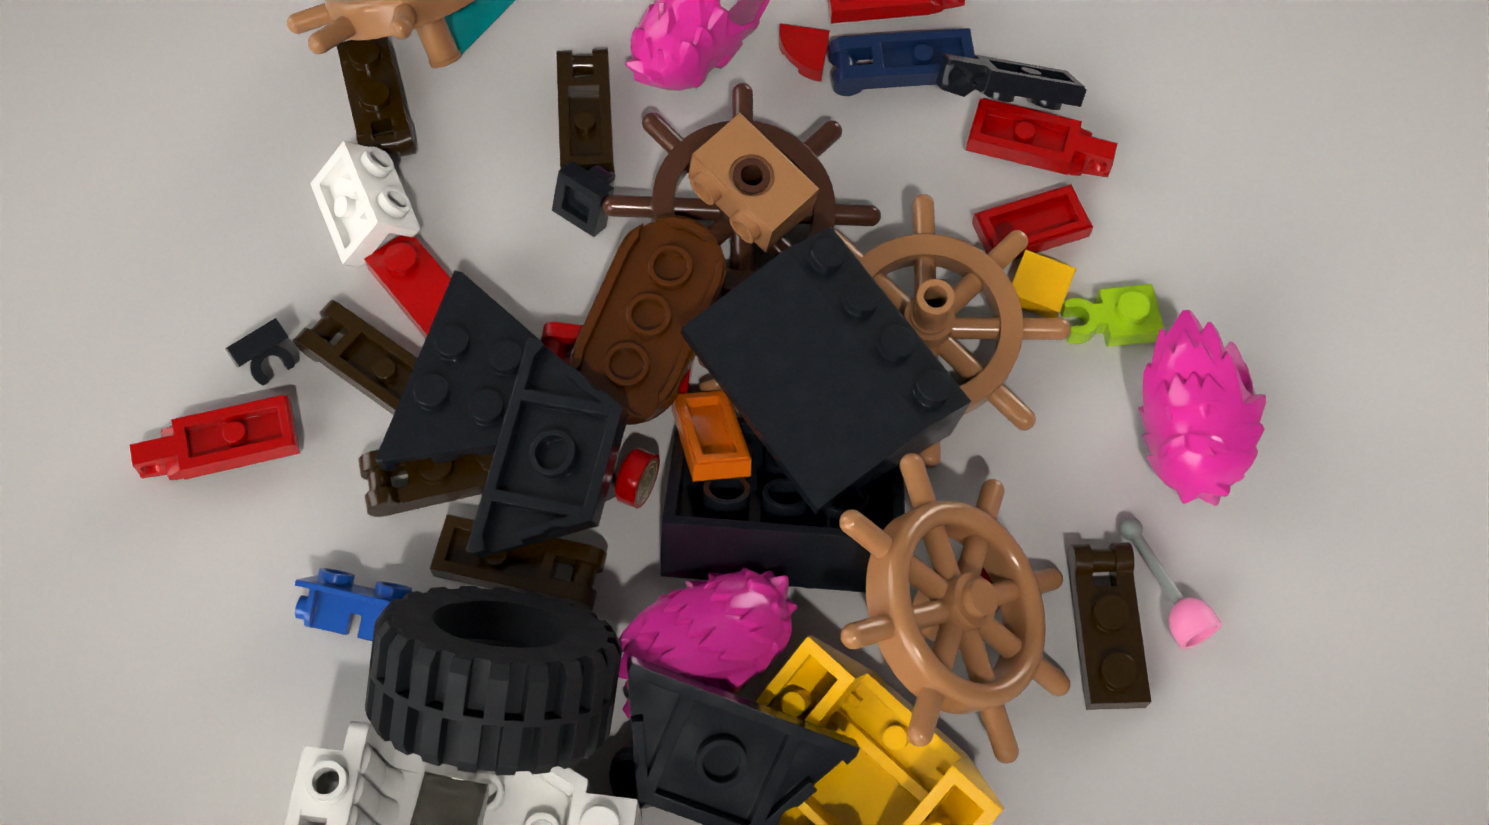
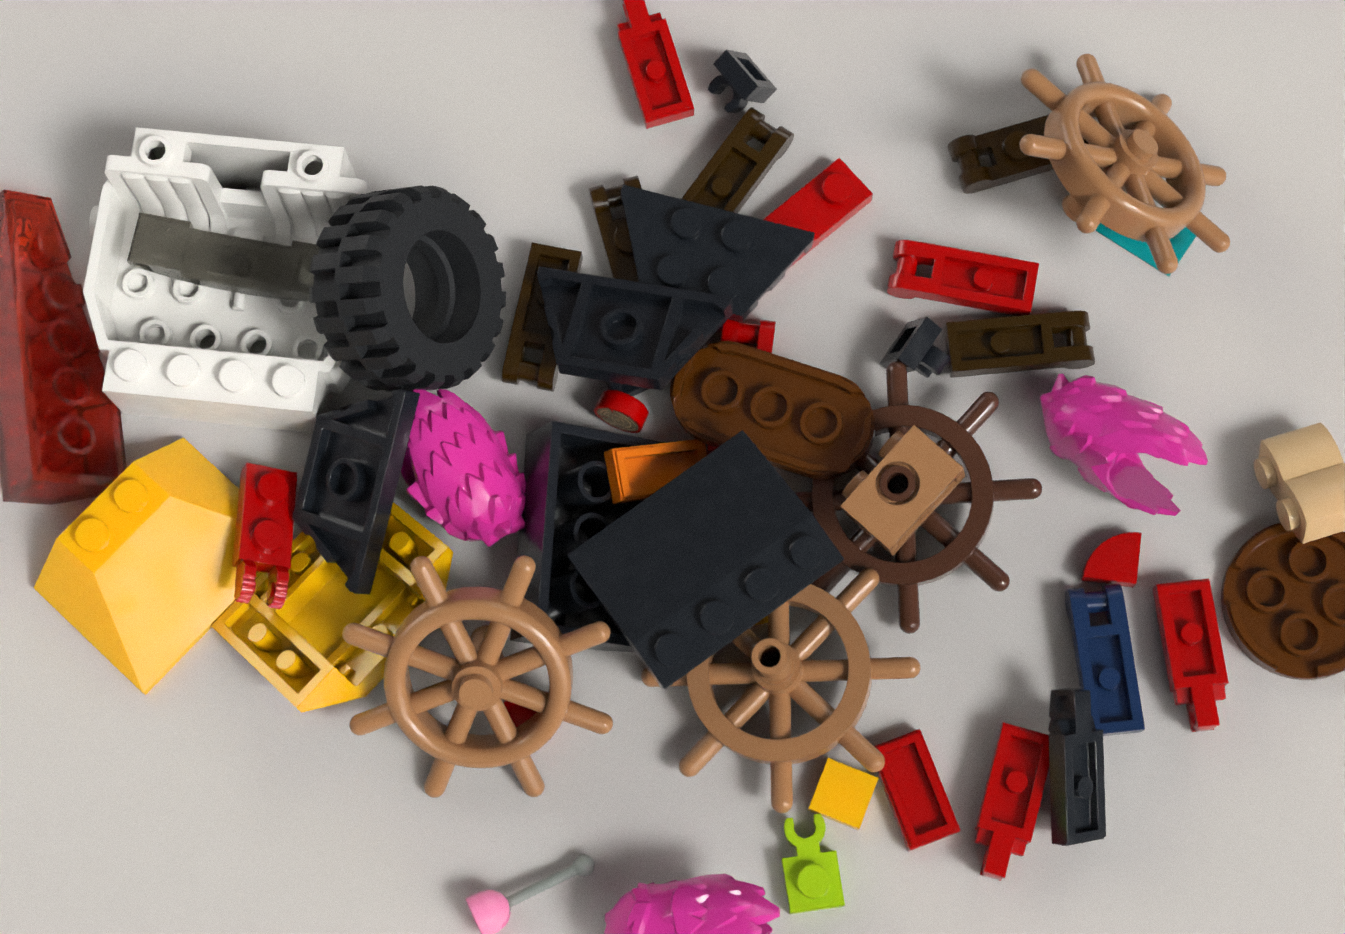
camera: 95 degrees right, 10 degrees up
(336, 599) = (509, 172): blue hinge -> none
(362, 201) = (897, 151): white bracket -> none
(510, 153) = (964, 278): none -> red plate
(1108, 628) = (486, 835): dark brown plate -> none

